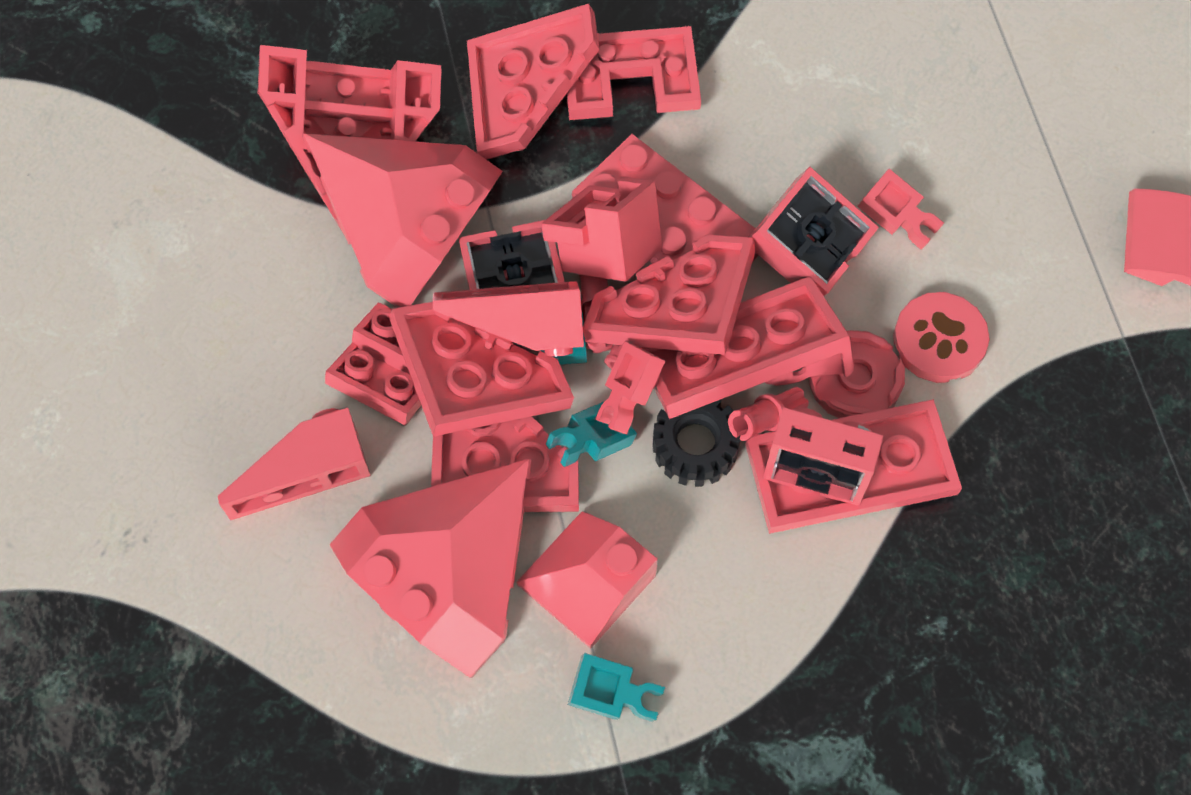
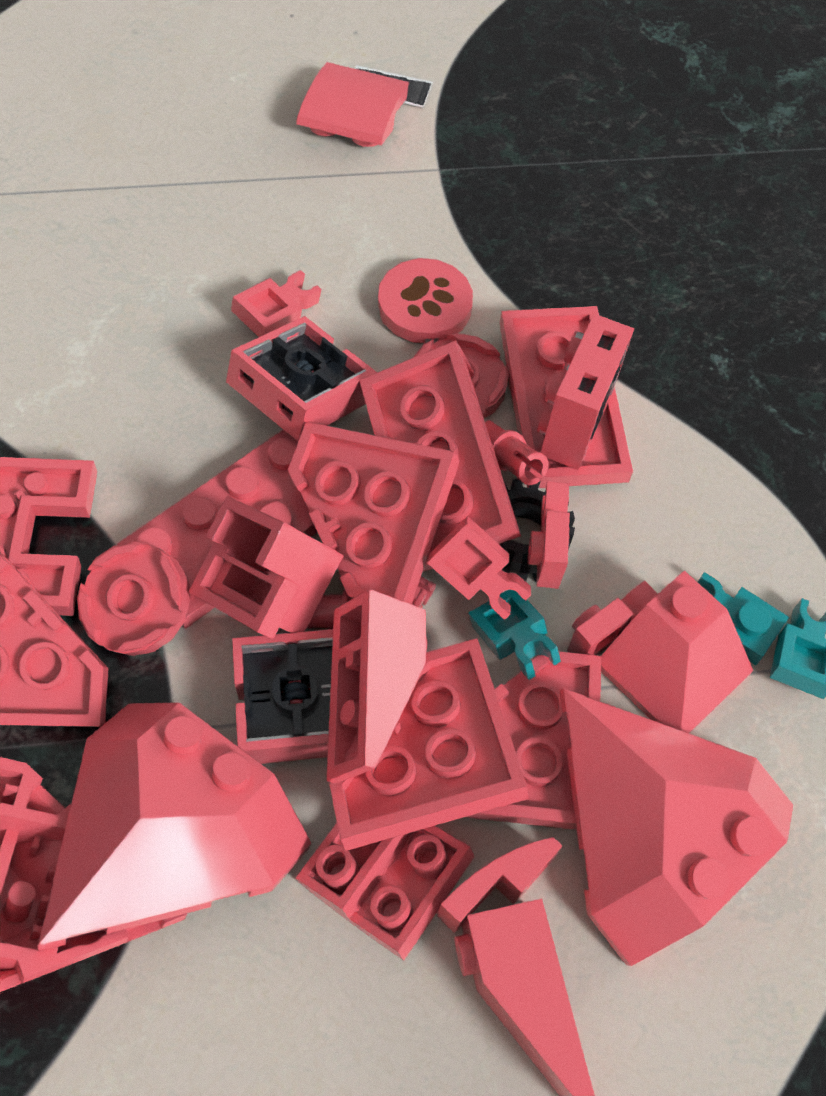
camera: 90 degrees left, 5 degrees down
(386, 444) = (509, 874): none -> coral slope
(583, 153) = (133, 599): none -> coral tile
(609, 505) = (599, 628): none -> coral plate
(637, 637) = (752, 617): none -> teal plate
(667, 443) = (550, 546): none -> coral plate

